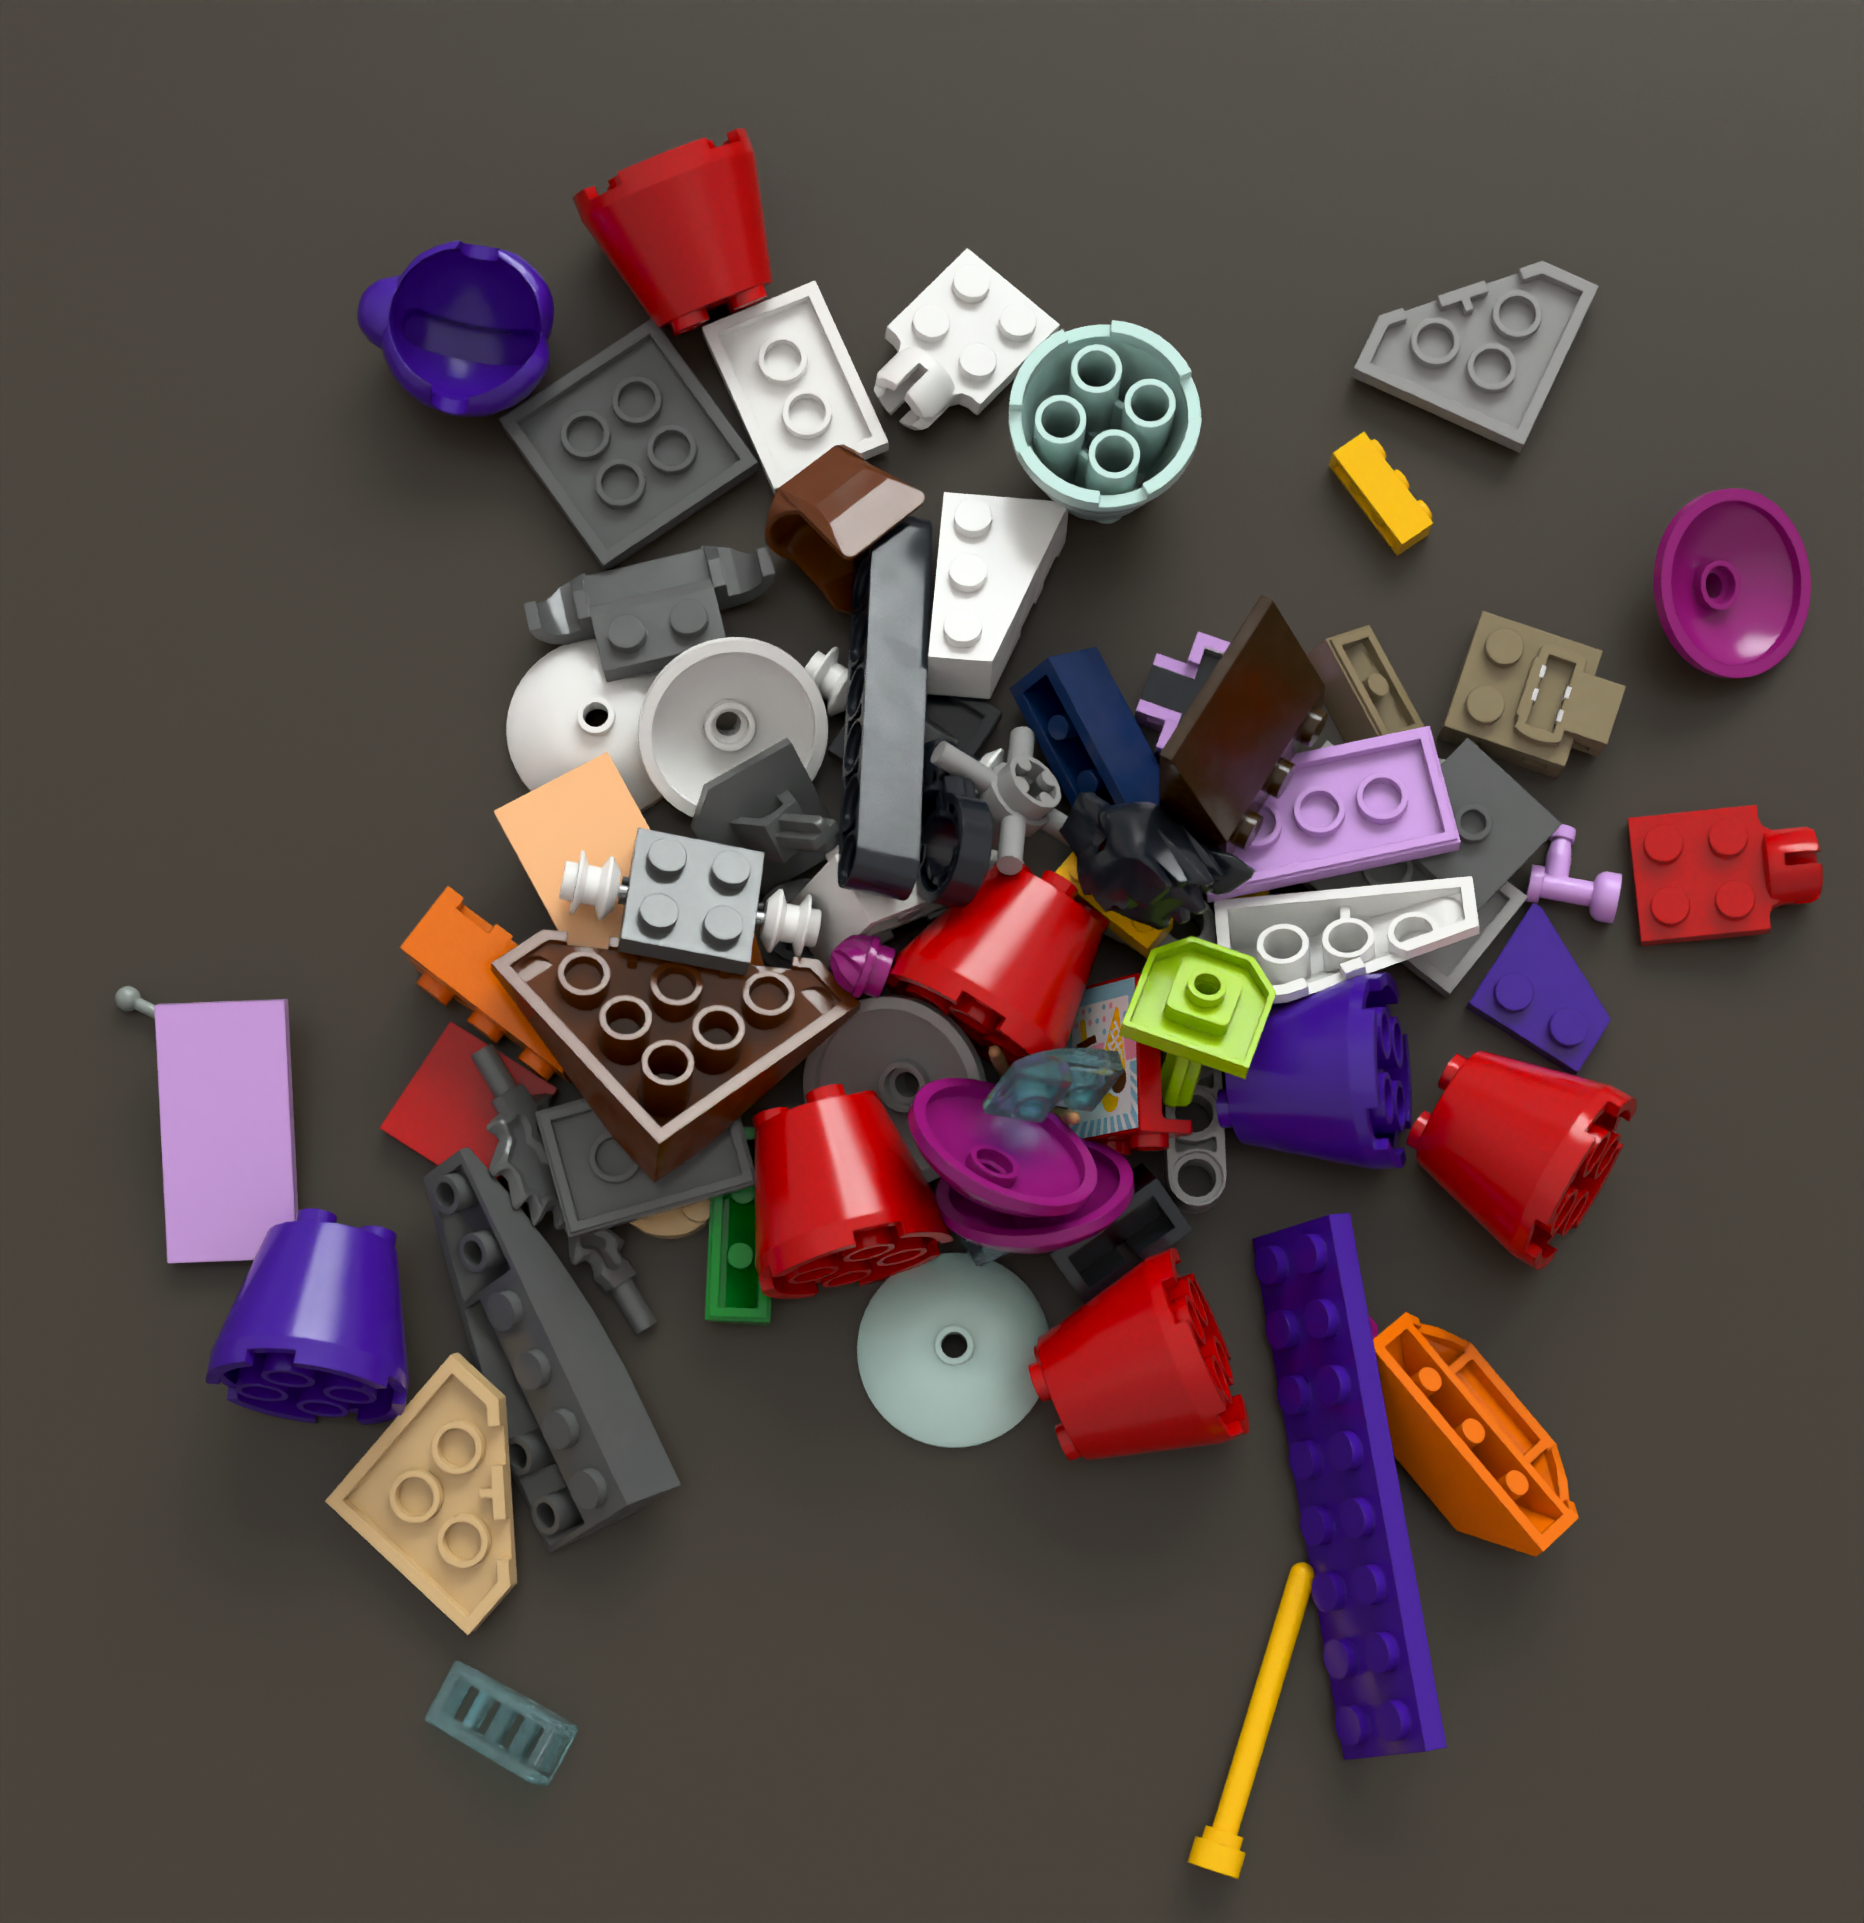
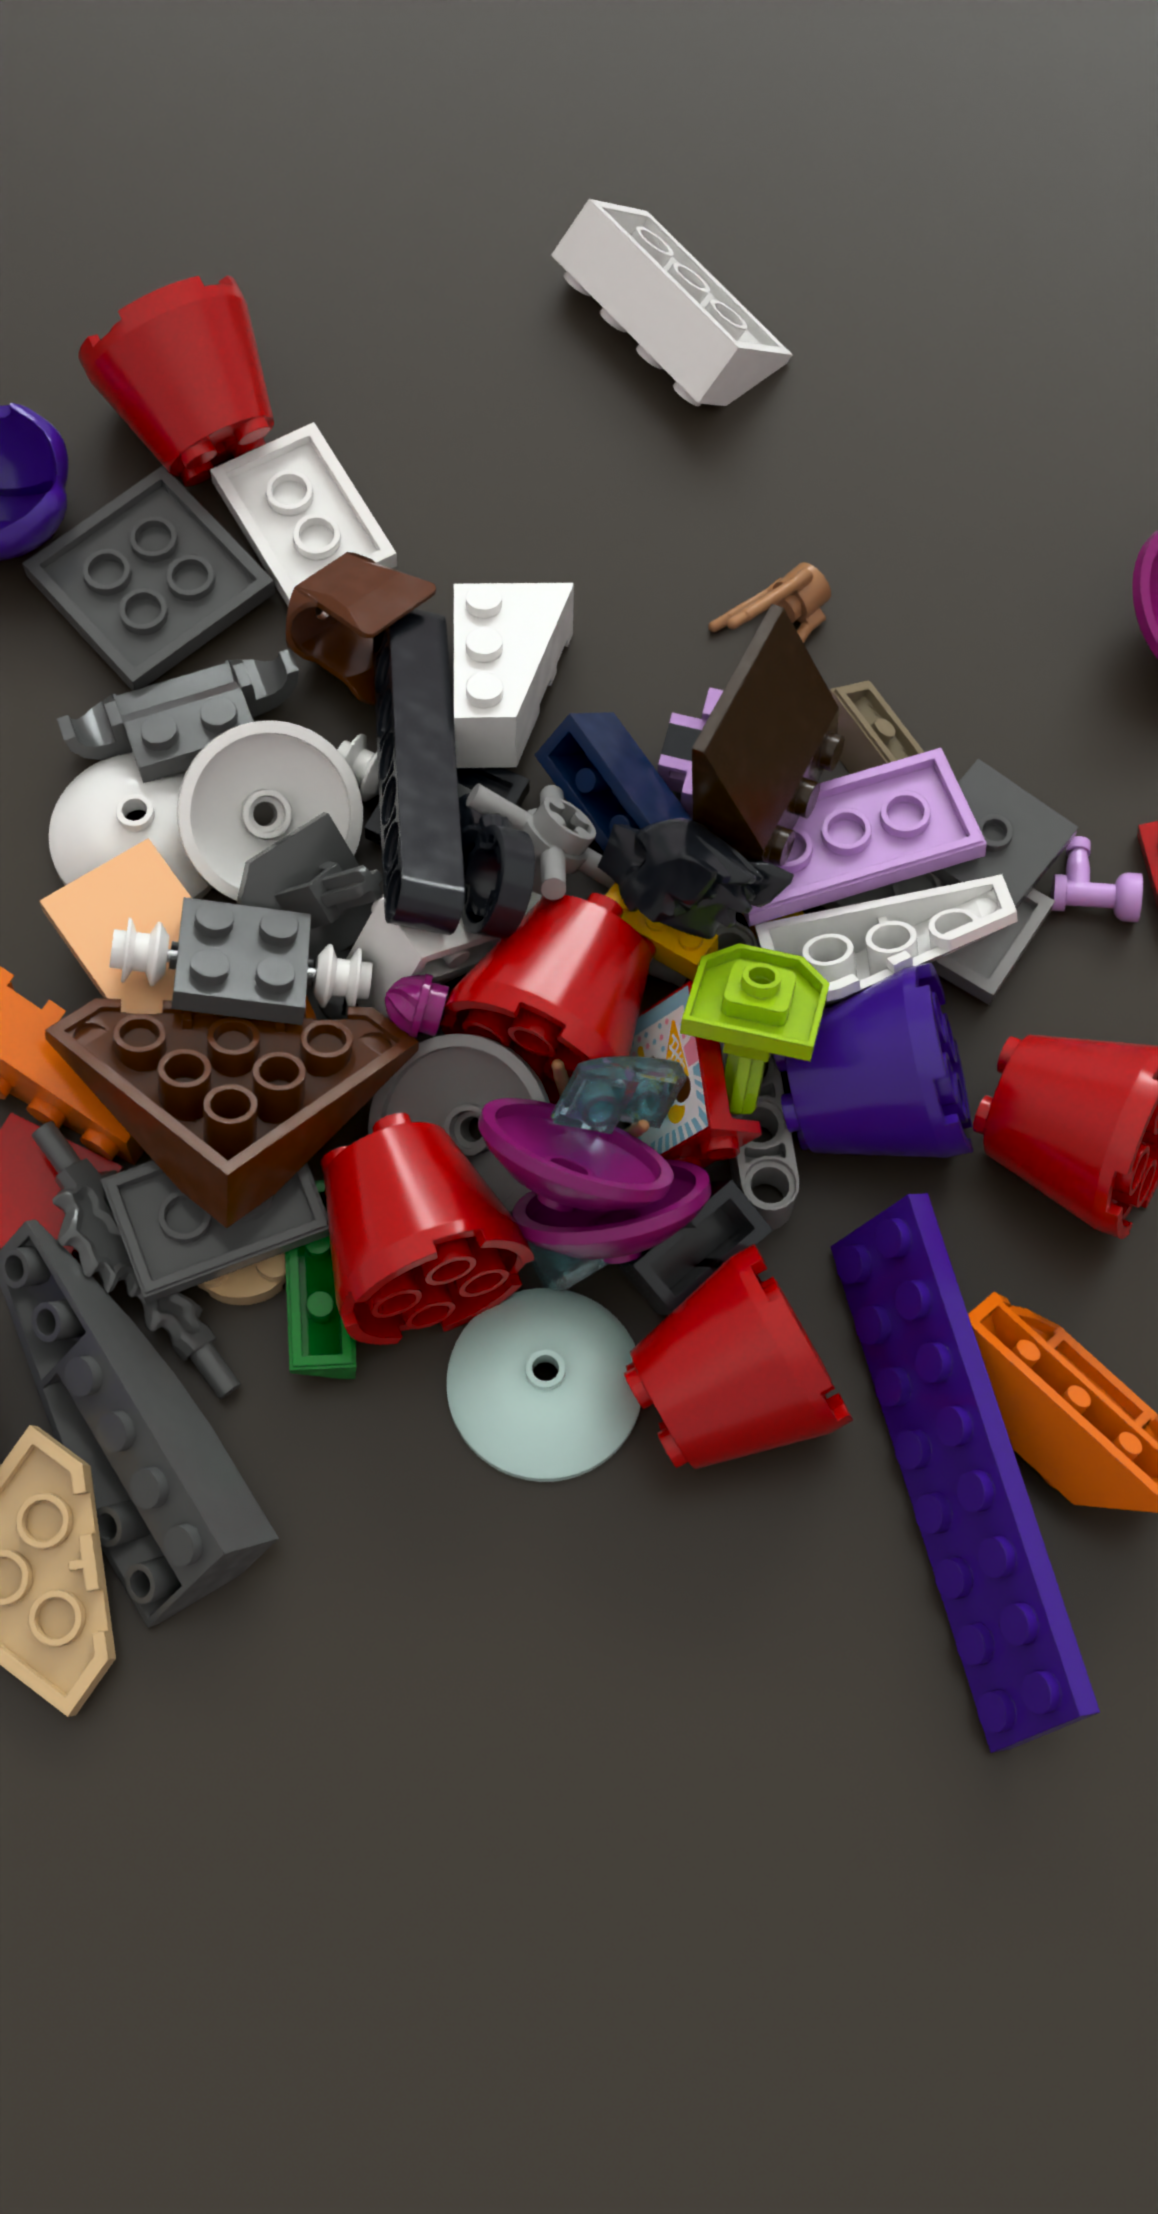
camera: 10 degrees left, 10 degrees down
(549, 1749) = (150, 1825): clear light blue slope -> none
(959, 343) = (455, 468): white plate -> none
(1111, 393) = (600, 501): light aqua cone -> none
(1208, 168) = (667, 304): none -> white slope
(1219, 1844) = (875, 1855): yellow piece -> none
(1298, 527) = (798, 592): none -> medium nougat plant
(1381, 493) = (864, 564): yellow piece -> none
(1481, 350) = (939, 436): light grey plate -> none
(1530, 697) = (1032, 724): dark tan piece -> none
(1541, 995) = (1078, 989): dark purple wing -> none

